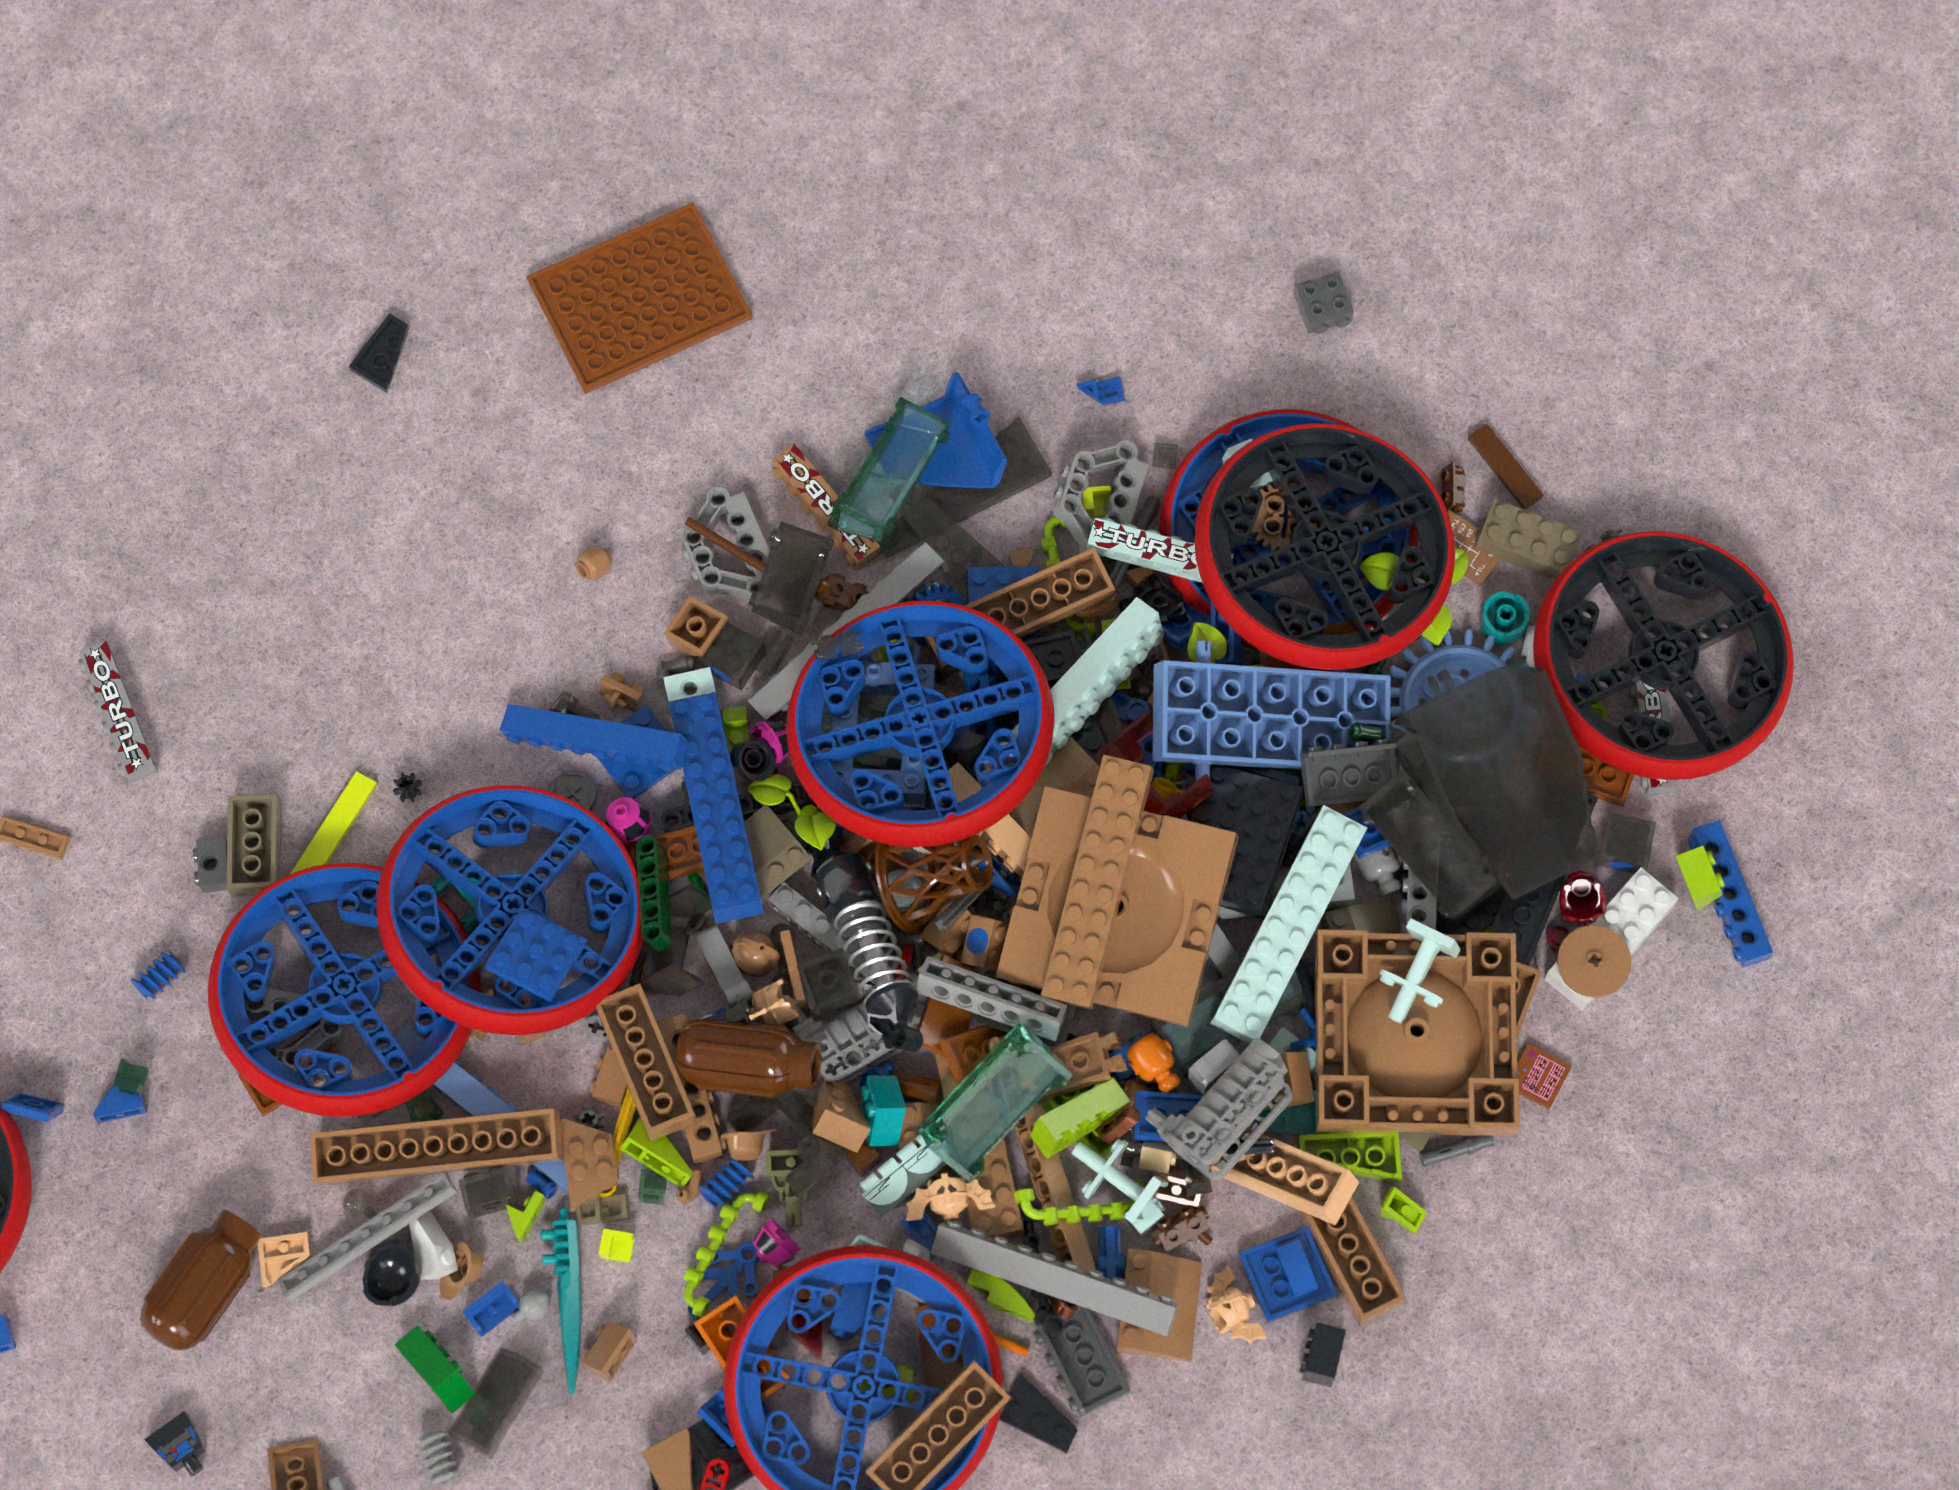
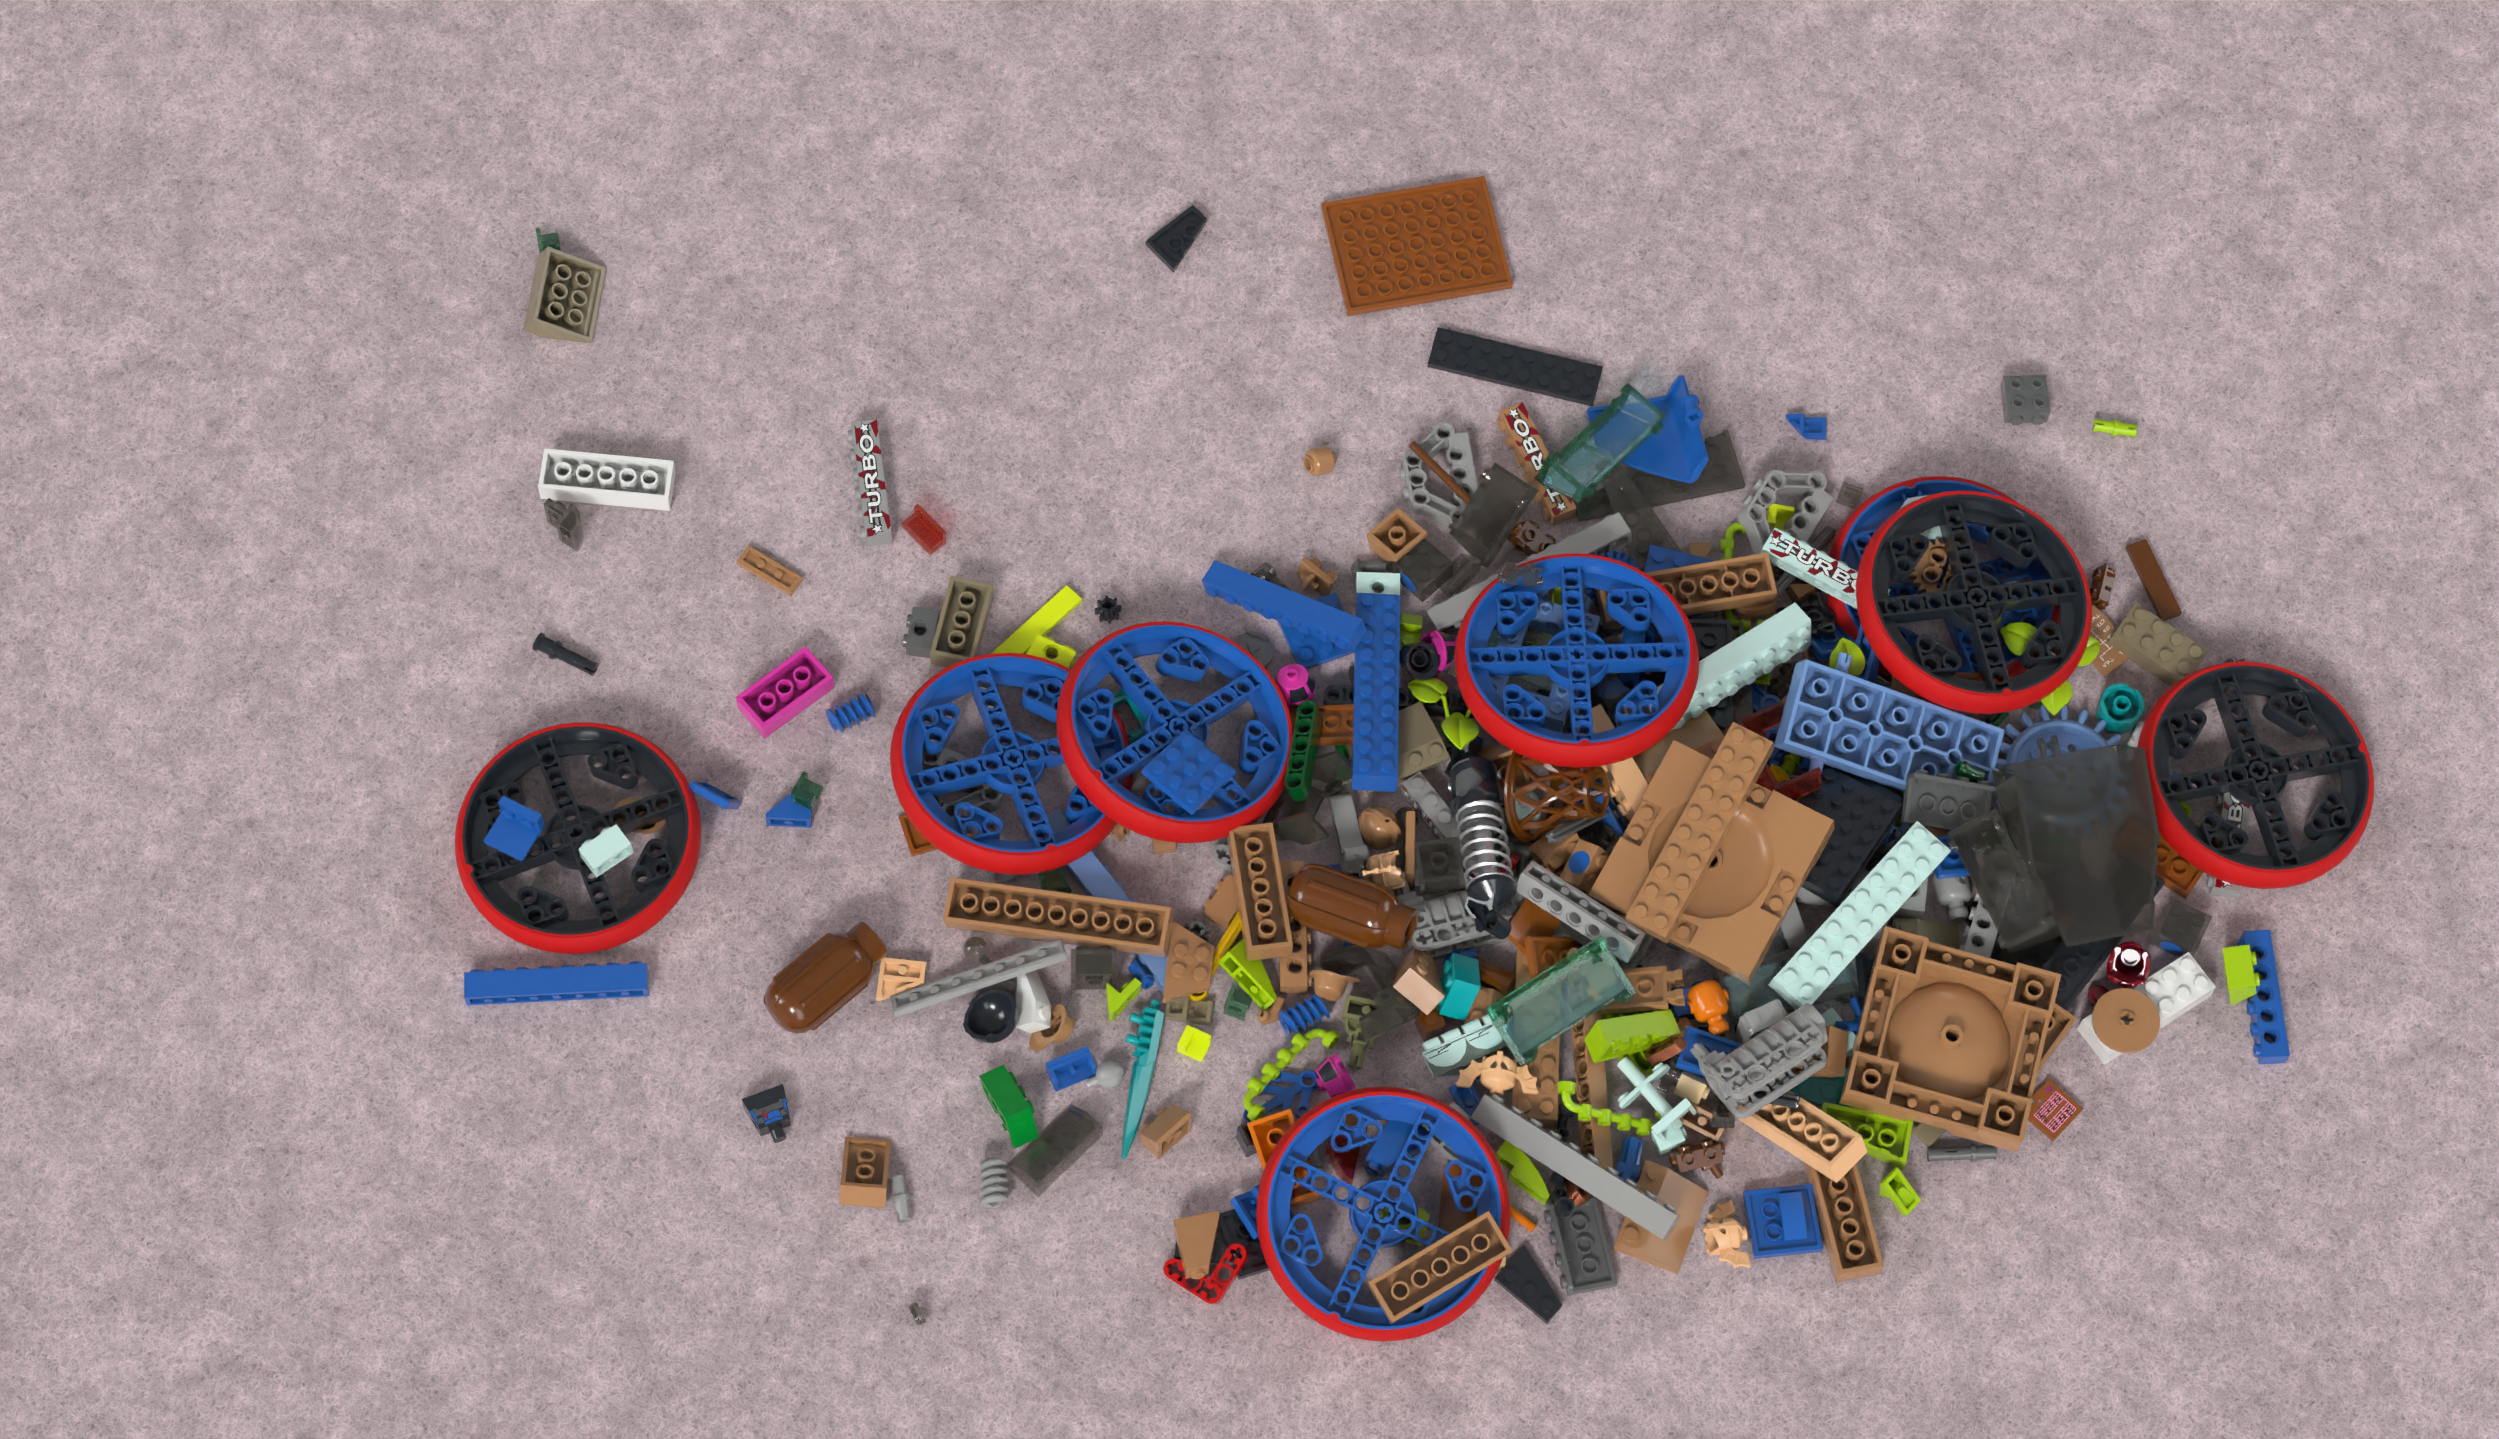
camera: 10 degrees right, 5 degrees down
(81, 971) = (785, 692): none -> dark pink brick
(188, 750) = (925, 530): none -> clear red panel
(348, 846) = (1046, 646): none -> neon yellow brick
(776, 404) = (1515, 366): none -> black plate
(1324, 1354) = (1799, 1292): black brick -> none
(1424, 310) = (2114, 427): none -> lime pin
(1431, 944) = (1984, 961): light aqua piece -> none

